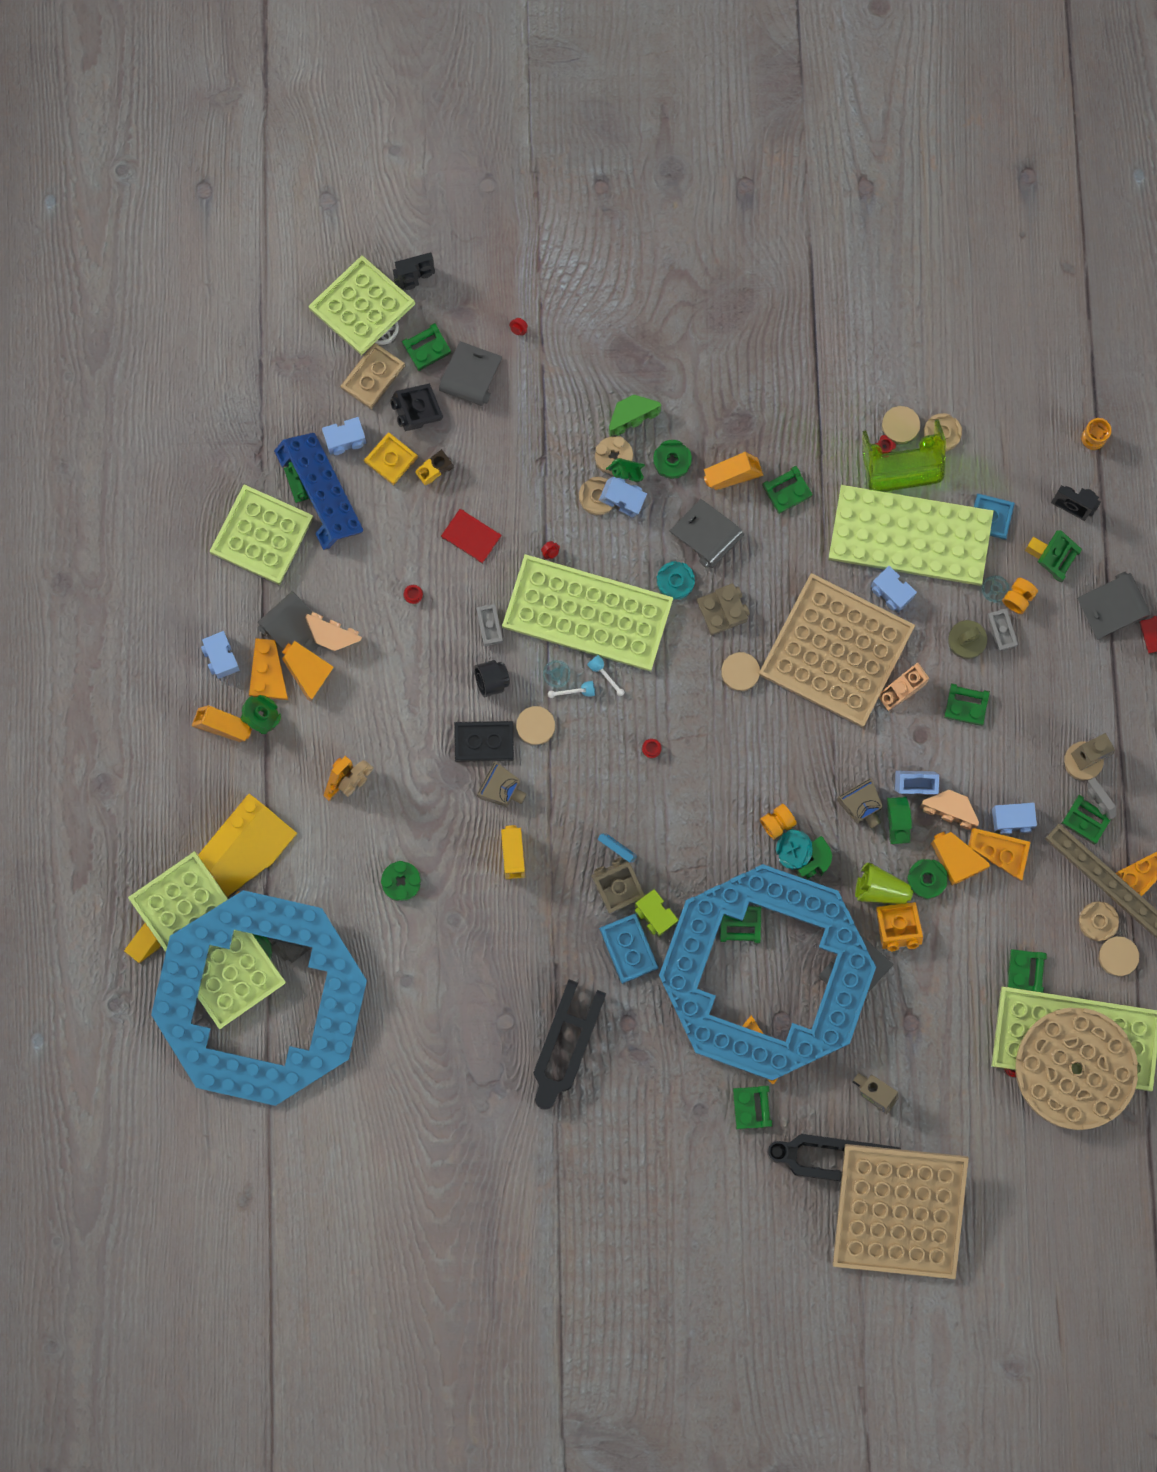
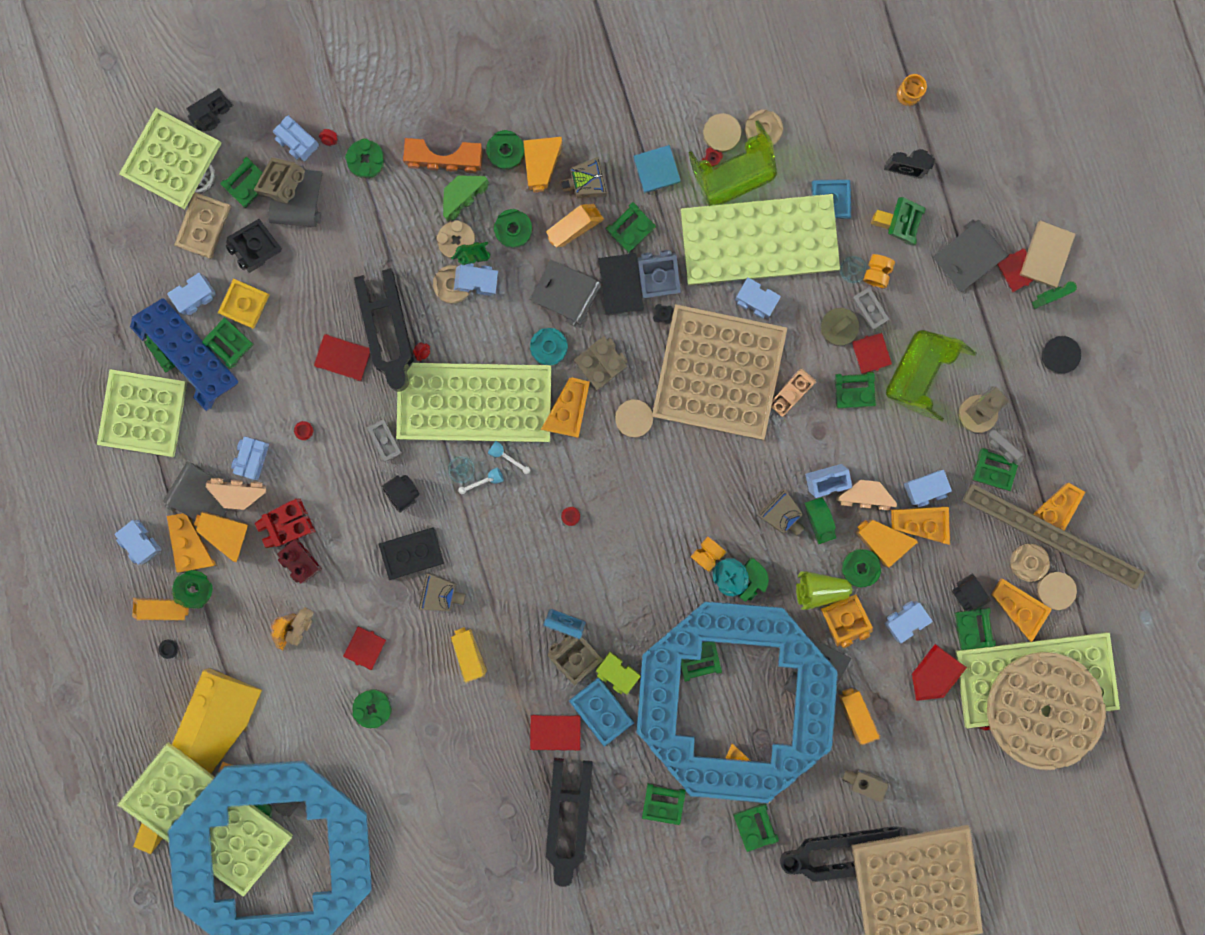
camera: 15 degrees left, 10 degrees up
(218, 766) = (168, 649): none -> black plate
(354, 605) = (250, 458): none -> light blue brick
(370, 488) = (232, 338): none -> green plate
(370, 677) = (278, 524): none -> red hips
(372, 717) = (298, 561): none -> dark red brick
(411, 820) = (364, 648): none -> red piece
(434, 467) = (287, 301): leg -> none
(461, 352) = (280, 180): none -> dark tan plate
(487, 319) = (296, 138): none -> light blue brick
(522, 558) = (396, 369): none -> black piece
(535, 725) = (455, 525): tan tile -> none
(545, 366) = (364, 169): none -> green plate
(576, 956) = (555, 732): none -> red piece
(645, 381) = (467, 157): none -> orange arch
(663, 1063) = (661, 810): none -> green plate
(678, 644) = (569, 409): none -> light orange wing
(688, 394) = (498, 142): none -> green plate
(717, 403) = (541, 160): none -> light orange slope
(756, 433) = (586, 180): none -> torso
(763, 540) = (621, 284): none -> black tile
(802, 540) = (659, 274): none -> sand blue plate
(802, 577) = (666, 318): none -> black plate
(828, 441) = (656, 169): none -> dark azure tile
(885, 1021) = (858, 716): none -> light orange slope
(966, 940) = (910, 618): none -> light blue brick
(975, 1004) = (936, 674): none -> red tile
(992, 673) = (871, 353): none -> red piece
(1030, 932) = (970, 593): none -> black piece
(1036, 701) = (919, 368): none -> clear neon green windscreen
(1078, 962) = (1021, 608): none -> light orange wing

